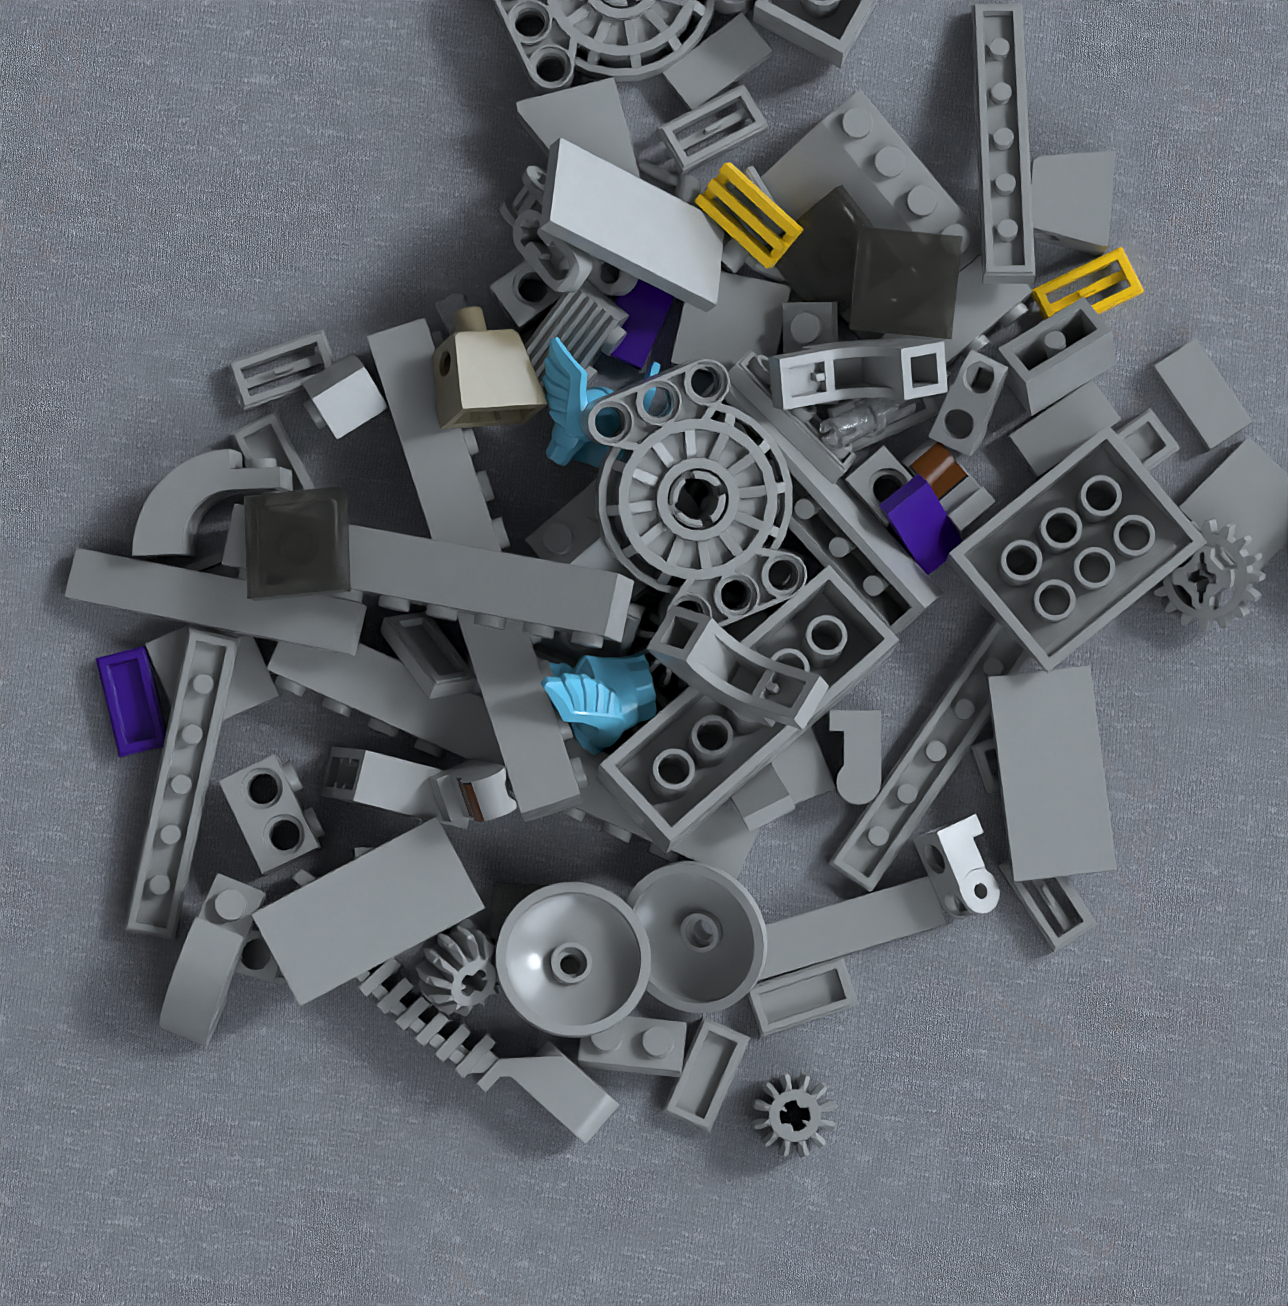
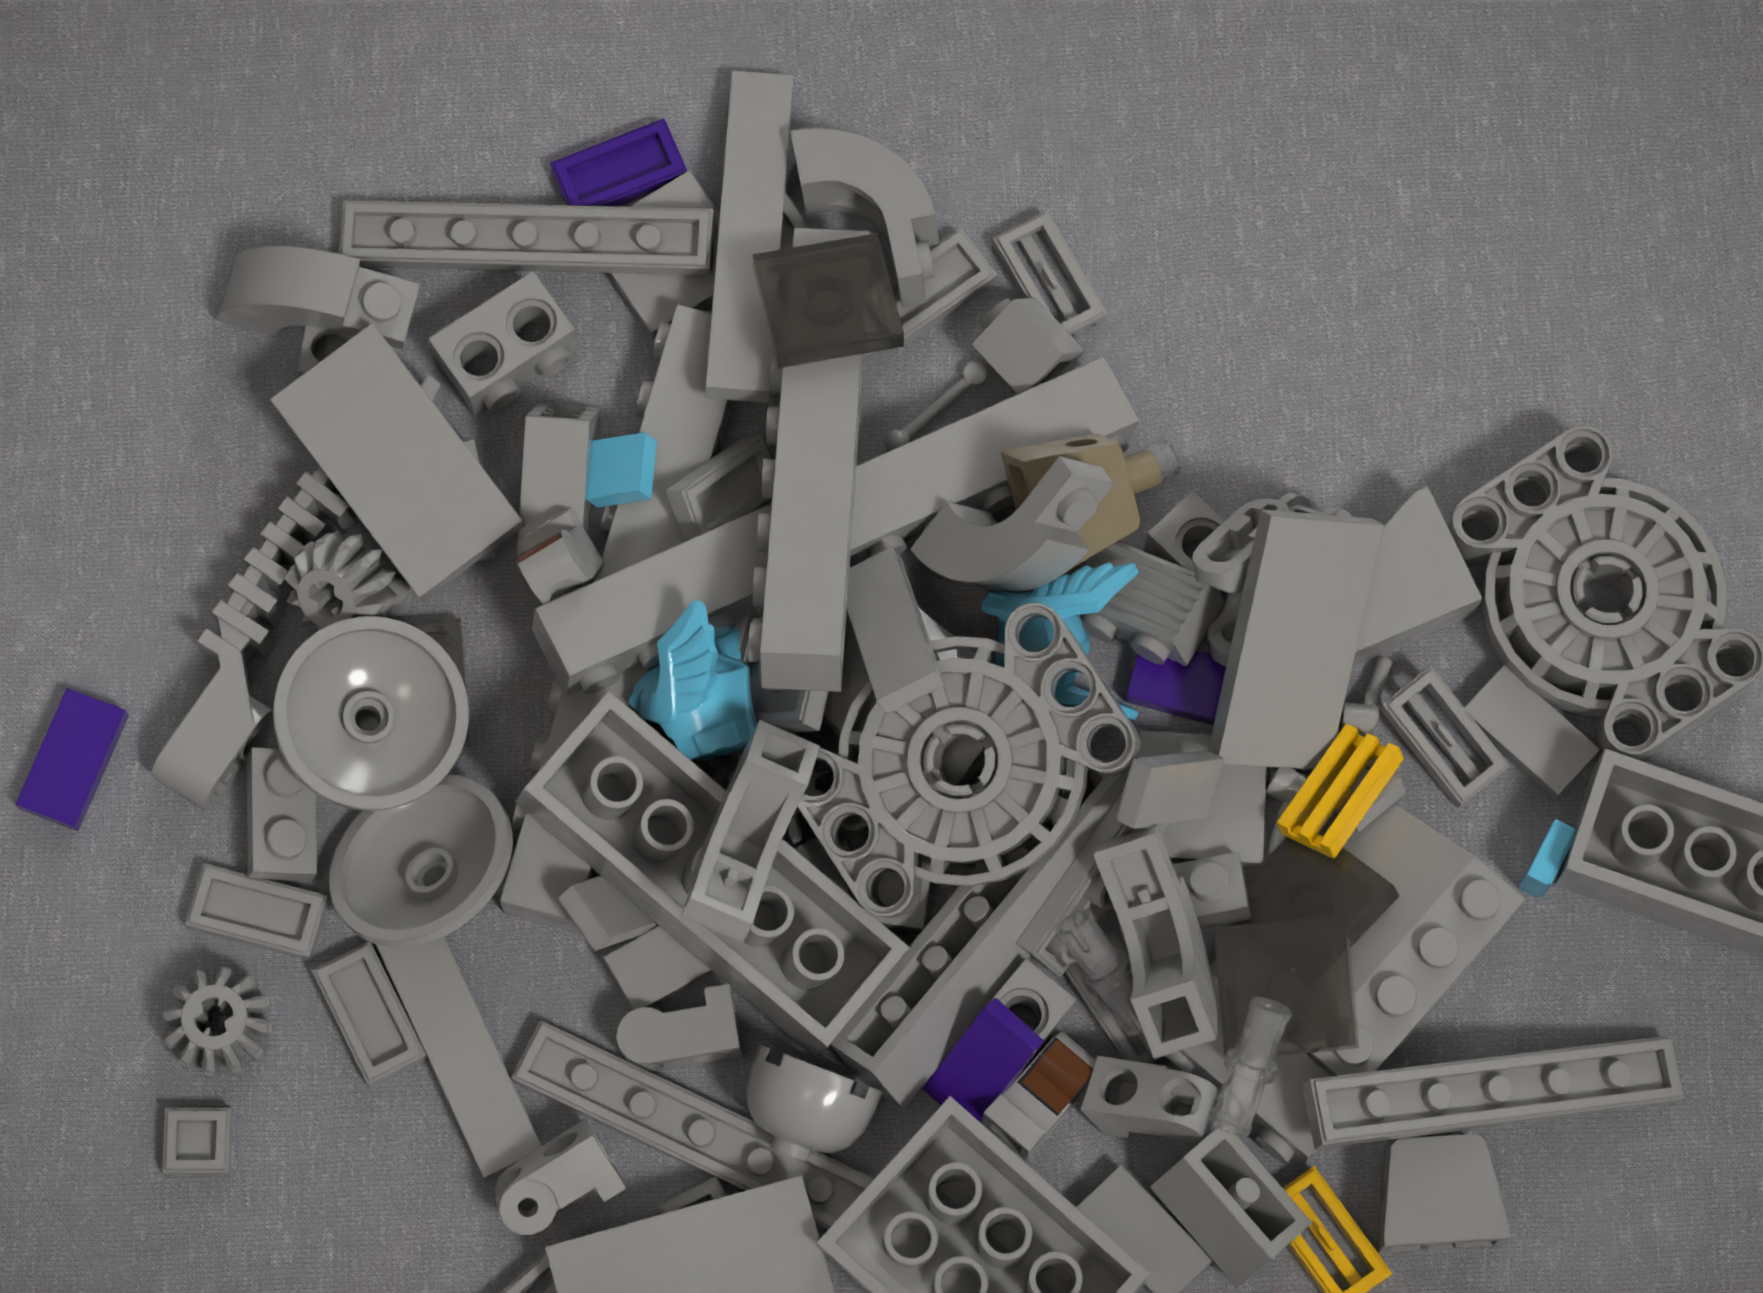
camera: 80 degrees right, 10 degrees down
(355, 445) = (973, 377): none -> light grey hinge
(402, 732) = (621, 470): none -> medium azure tile
(522, 457) = (1028, 546): none -> light grey arch
(559, 1206) = (72, 759): none -> dark purple tile
(587, 534) = (891, 632): none -> light grey tile
(738, 343) = (1169, 789): none -> light grey tile
(823, 68) = (1547, 859): none -> medium azure tile
(882, 1143) = (198, 1142): none -> light grey tile
(931, 664) = (806, 1105): none -> light grey cylinder
(965, 319) = (1250, 1066): none -> clear pin

